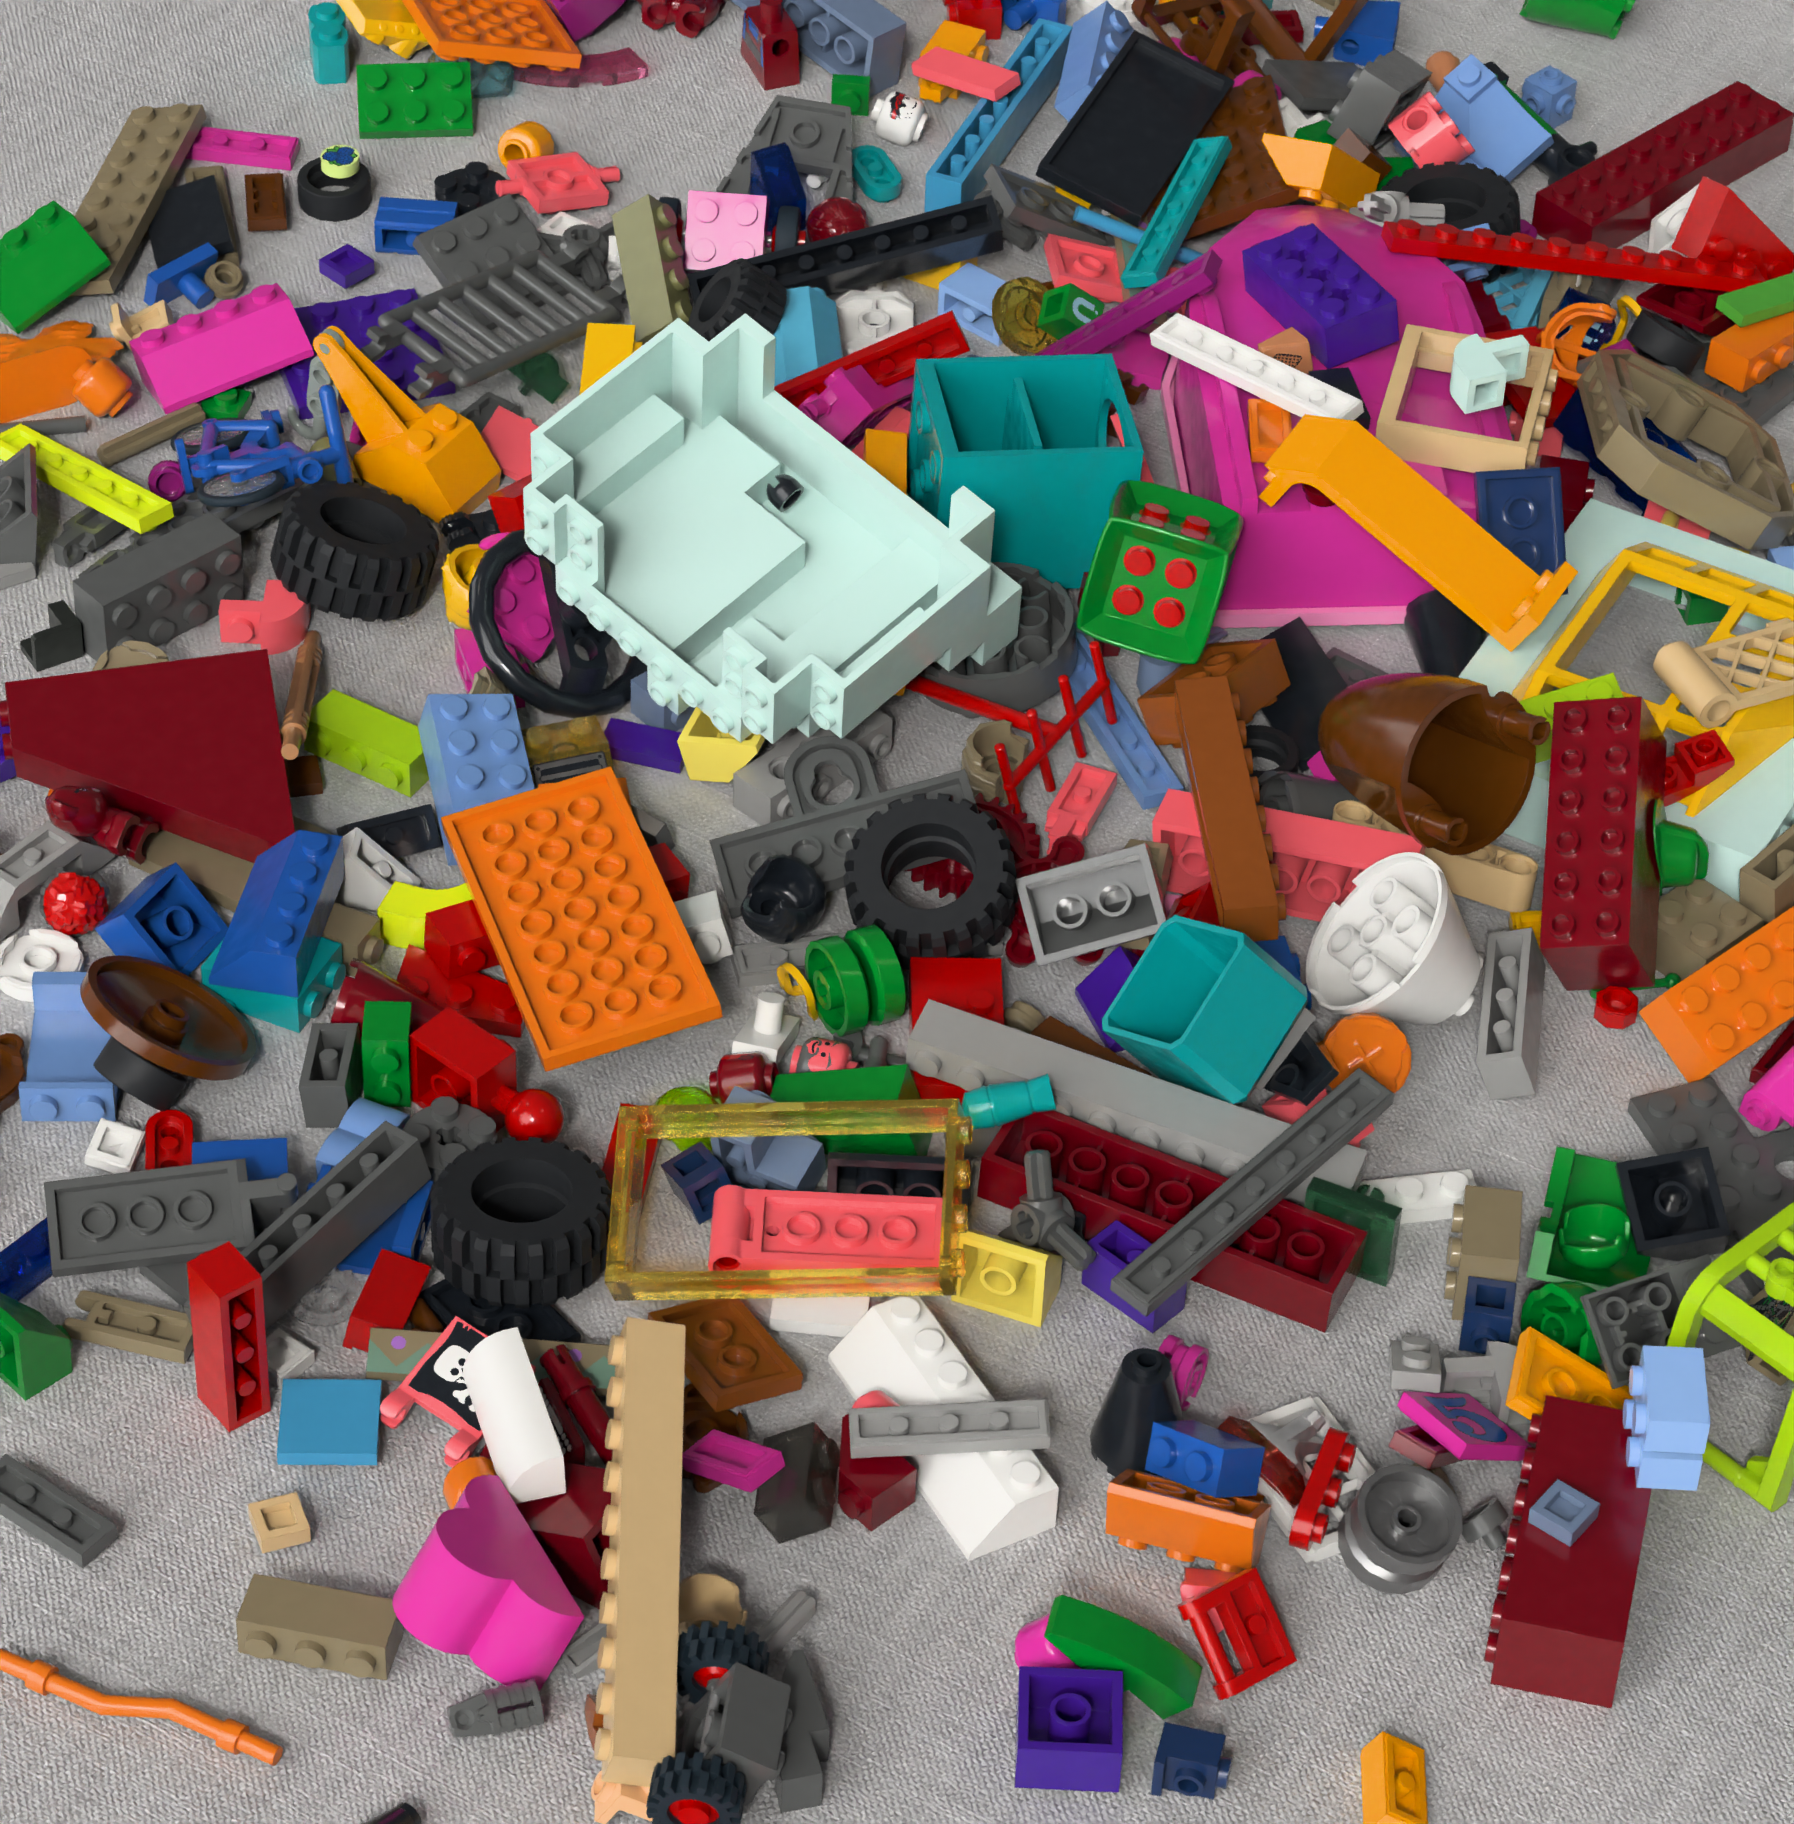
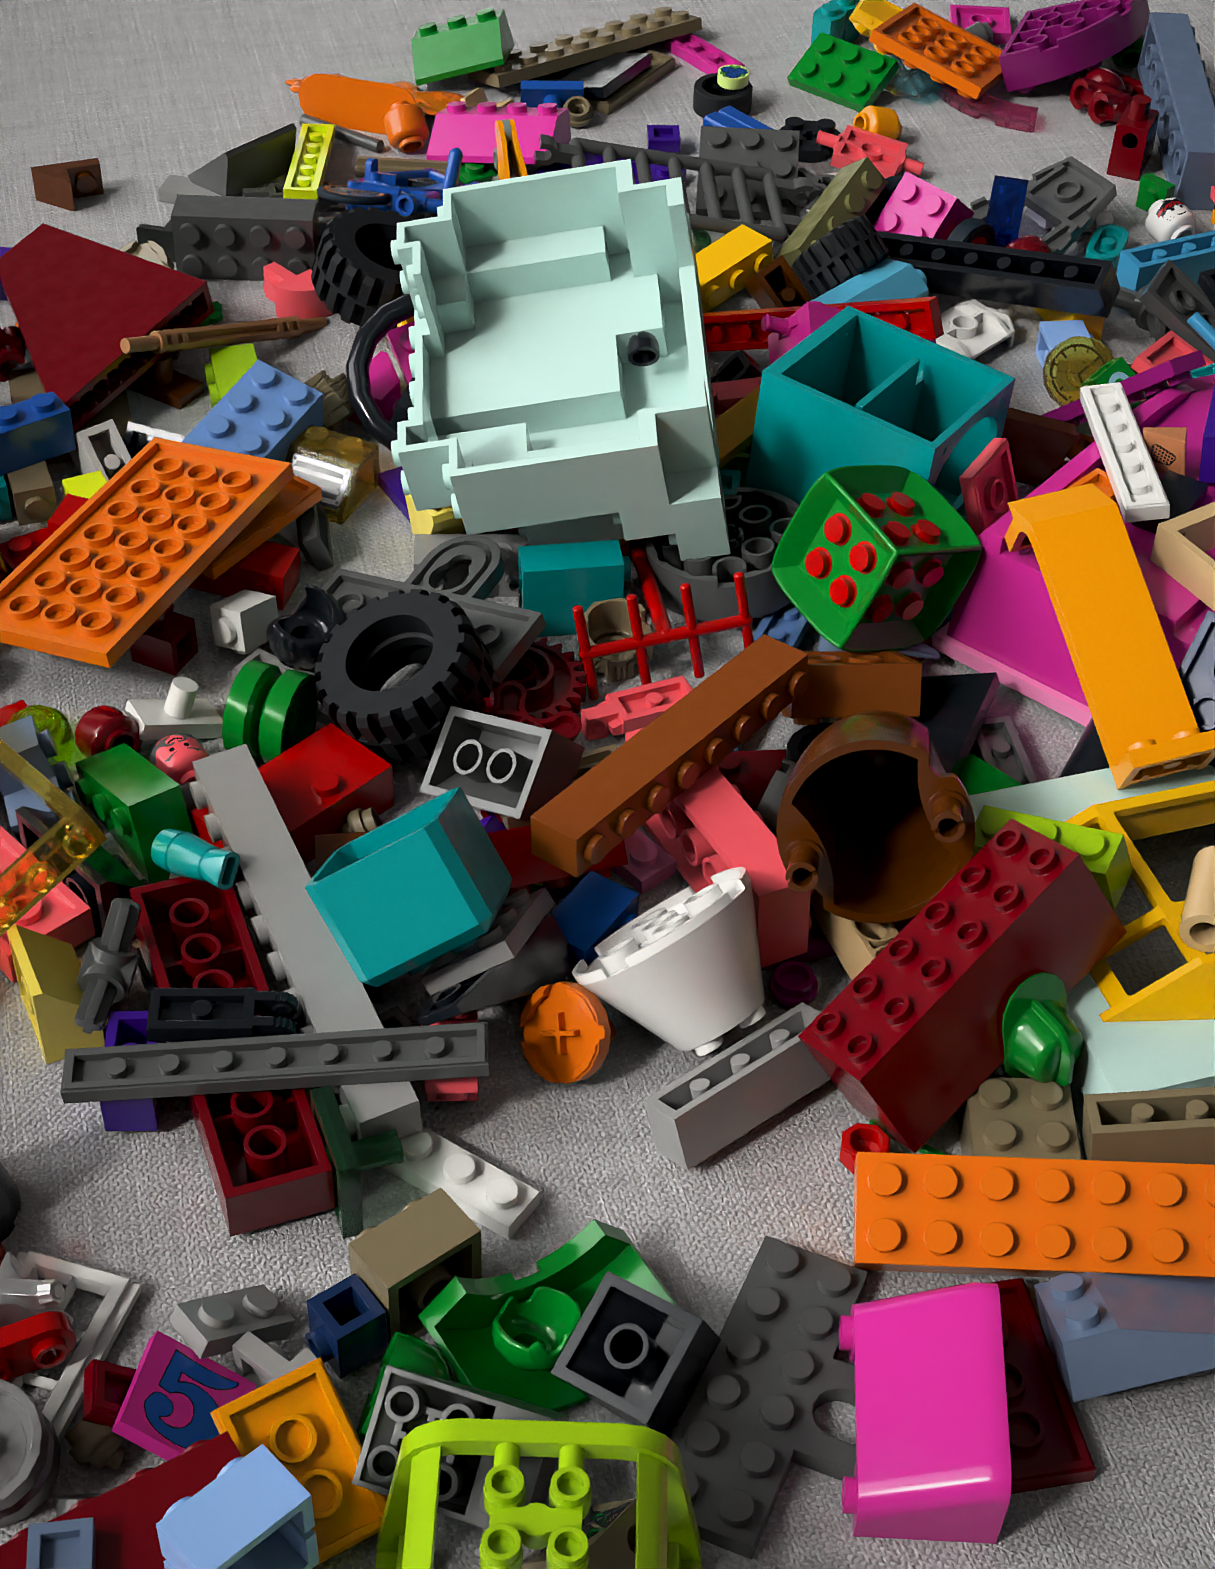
camera: 45 degrees right, 0 degrees up
(265, 202) = (668, 86): reddish brown plate -> none
(918, 735) = (569, 575): none -> teal brick
(1176, 1188) = (218, 1014): none -> black hinge
(1187, 1365) = (48, 1172): dark pink wheel -> none
(1695, 765) = (1142, 973): red slope -> none

